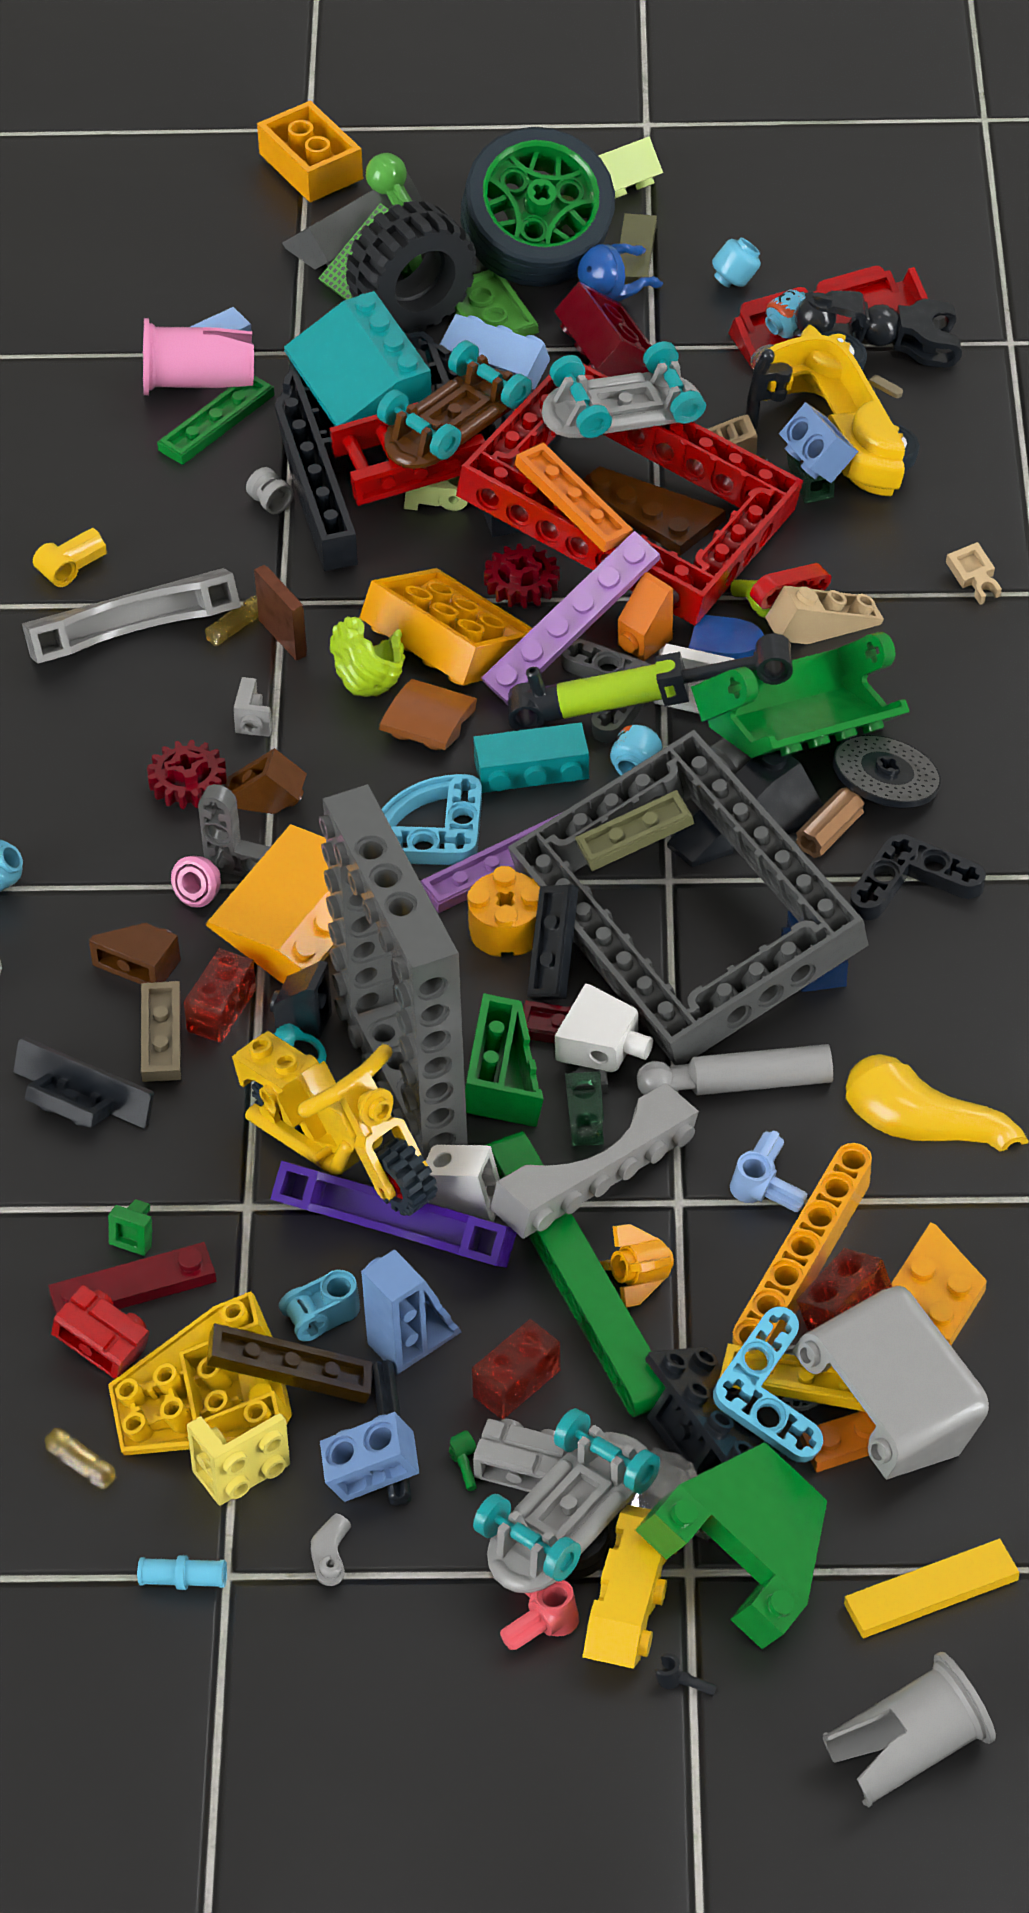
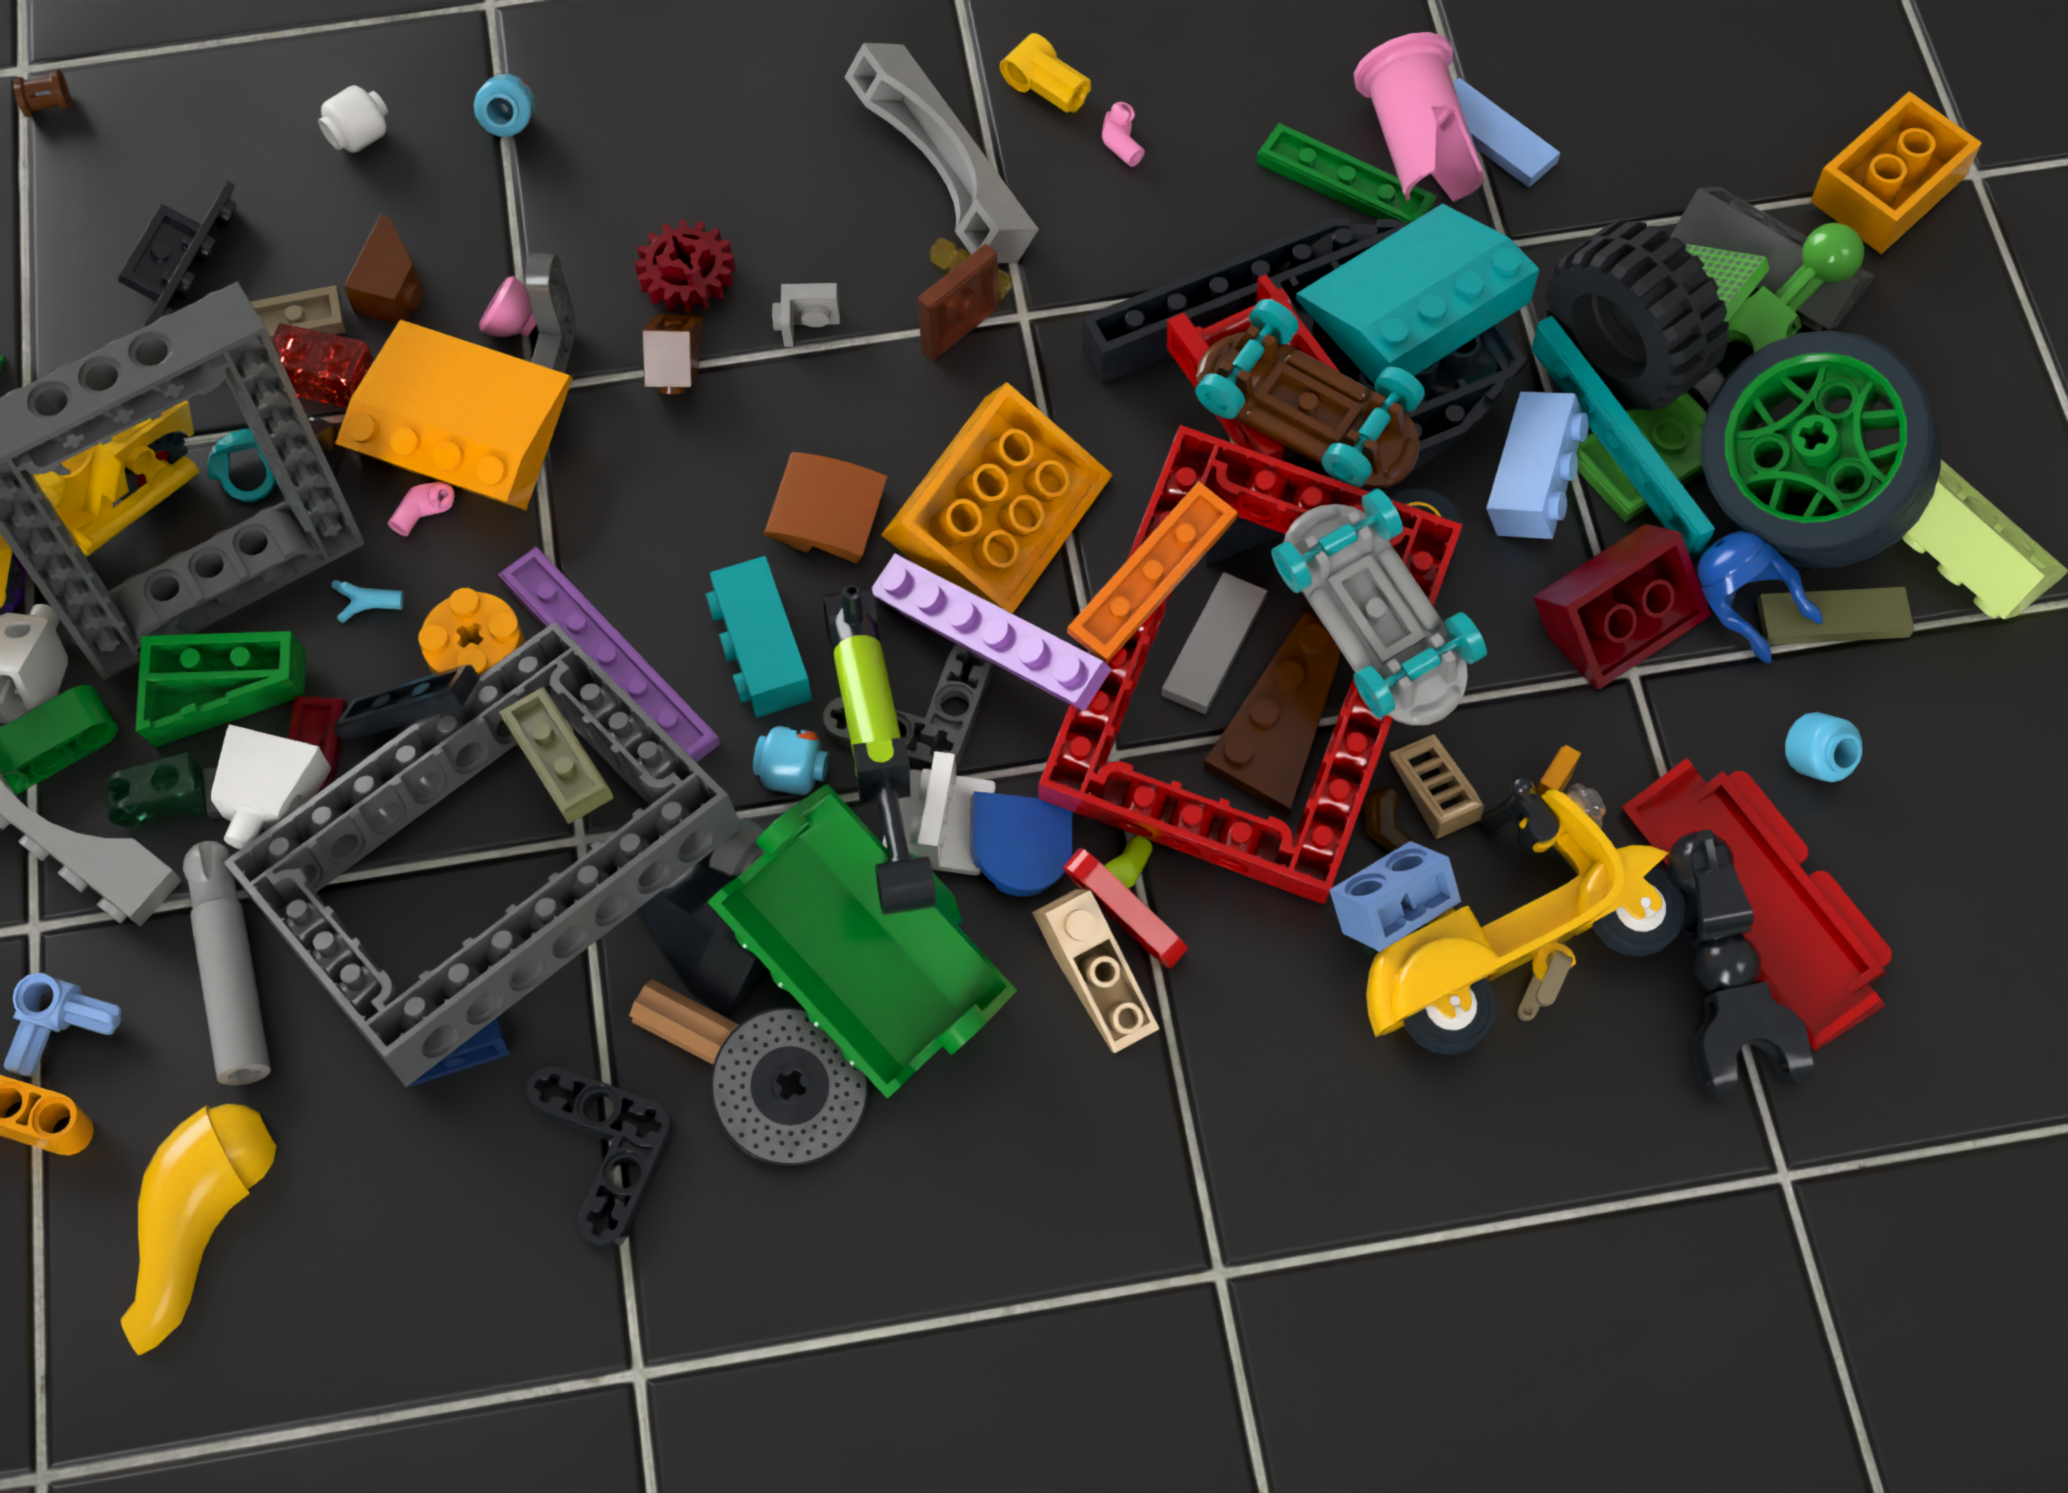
camera: 80 degrees right, 15 degrees up
(137, 530) = (1117, 132): none -> bright pink arm
(270, 491) = (1212, 247): light grey wheel -> none
(360, 665) = (893, 414): lime hair -> none
(454, 833) = (627, 571): medium azure beam -> none
(491, 305) = (1622, 437): none -> teal tile
(522, 575) = (1081, 560): dark red gear -> none
(647, 618) = (1024, 731): orange slope -> none
(730, 384) = (1559, 771): none -> light orange tile
(781, 313) = (1726, 822): medium azure head -> none
(974, 568) = (1234, 1163): tan plate -> none

